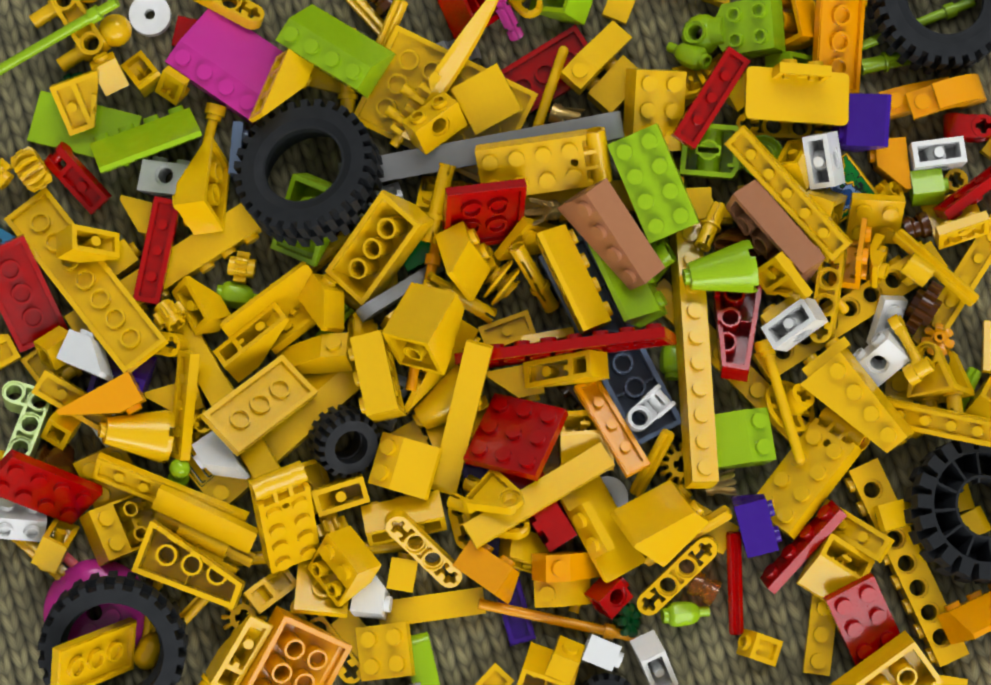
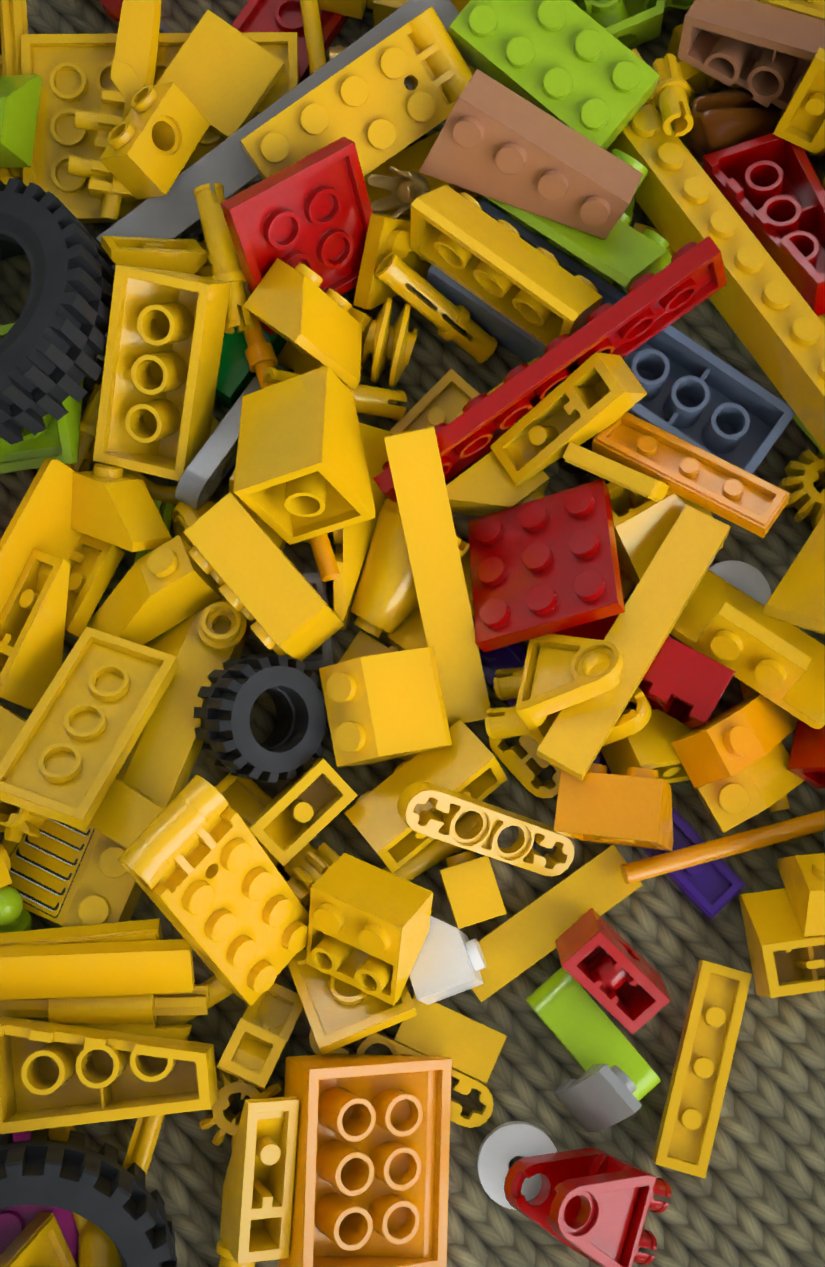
camera: 25 degrees left, 5 degrees down
(218, 458) = (59, 852): white slope -> none
(342, 378) = (221, 612): none -> yellow plate
(385, 651) = (512, 1039): yellow plate -> none
(405, 183) = (156, 253): none -> yellow slope
(448, 644) = (612, 971): none -> red brick
(574, 409) = (615, 472): none -> yellow tile
(652, 406) = (736, 407): white piece -> none
(655, 457) = (783, 474): yellow axle -> none
(668, 362) = (715, 335): lime plant -> none
(724, 270) = (746, 130): lime cone -> none

